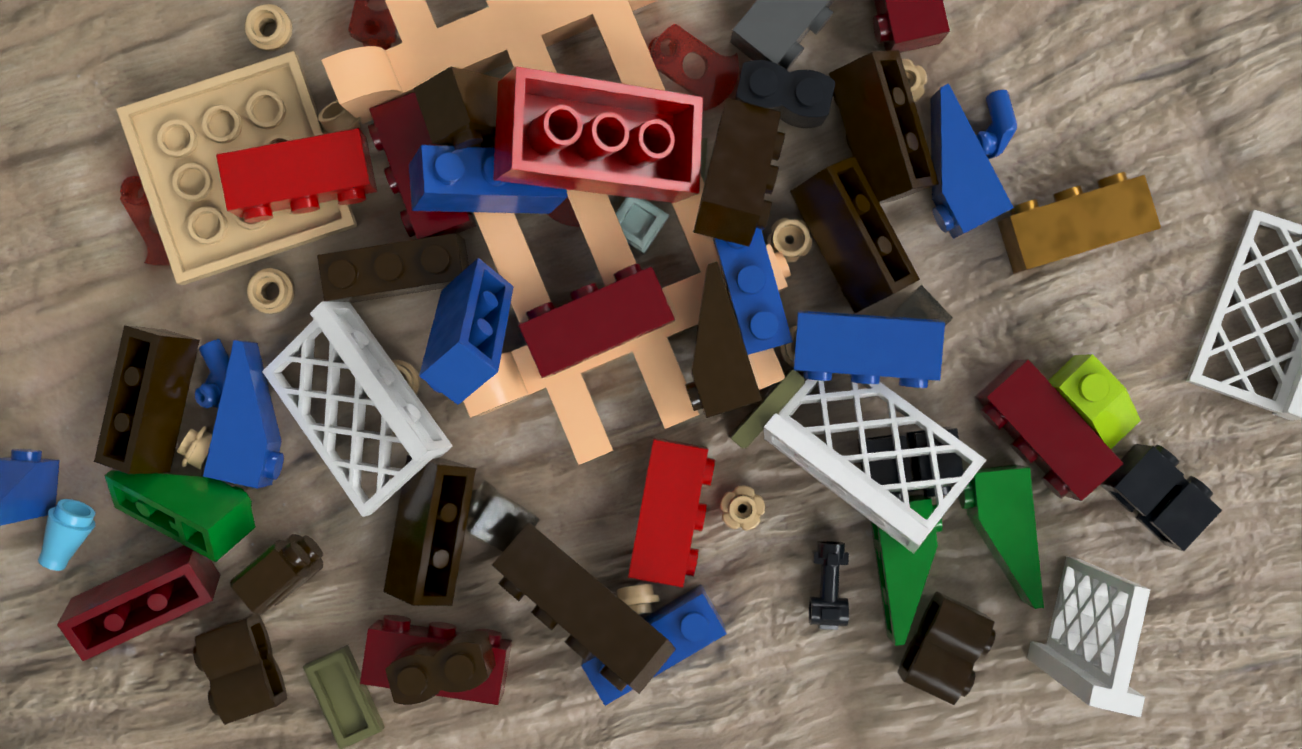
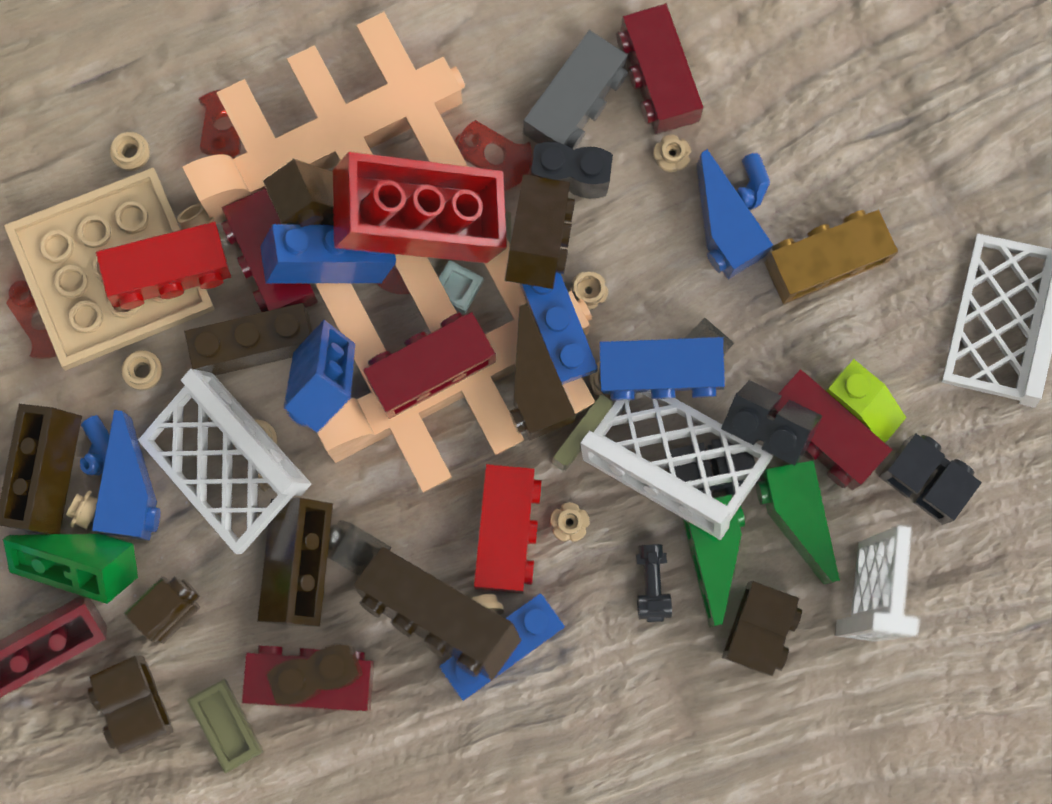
camera: 10 degrees left, 10 degrees down
(854, 234) = (642, 278): dark brown brick -> none
(883, 125) = (657, 190): dark brown brick -> none
(1000, 445) = (783, 436): none -> black piece

